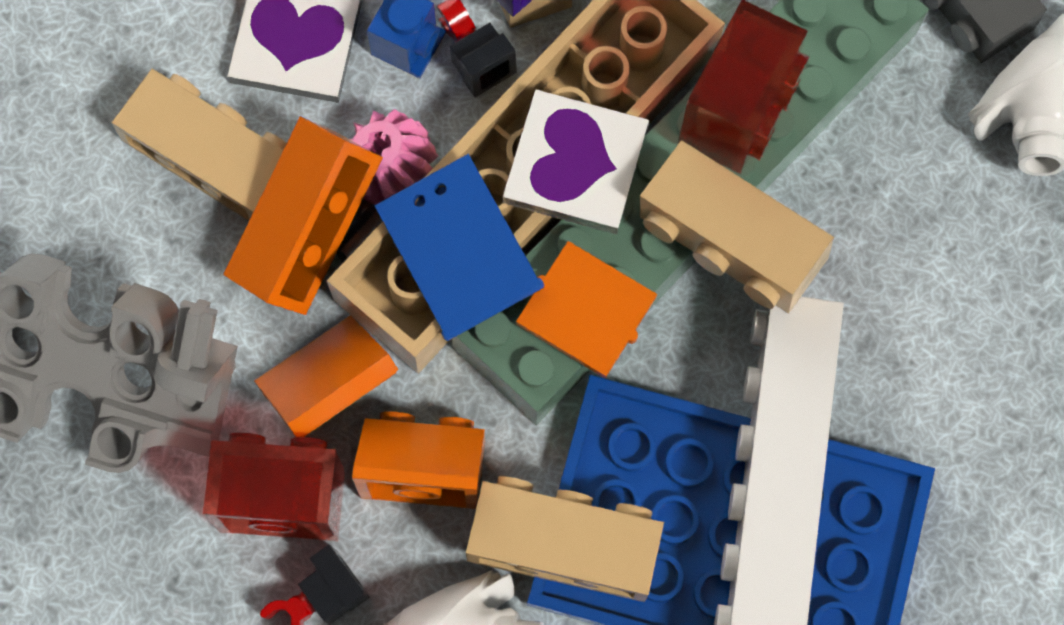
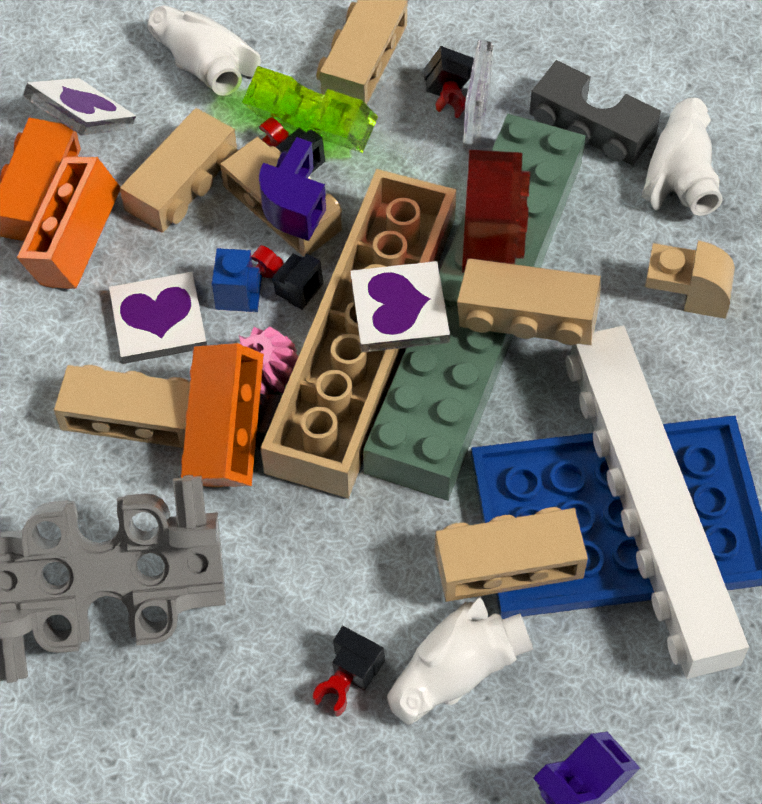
camera: 20 degrees left, 15 degrees down
(274, 488) = (288, 602): clear red brick -> none
(326, 376) = (287, 517): orange tile -> none
(420, 461) = (383, 549): orange slope -> none
(458, 247) = (345, 388): blue container -> none
(587, 309) = (452, 396): orange piece -> none
(981, 261) = (700, 274): none -> tan brick

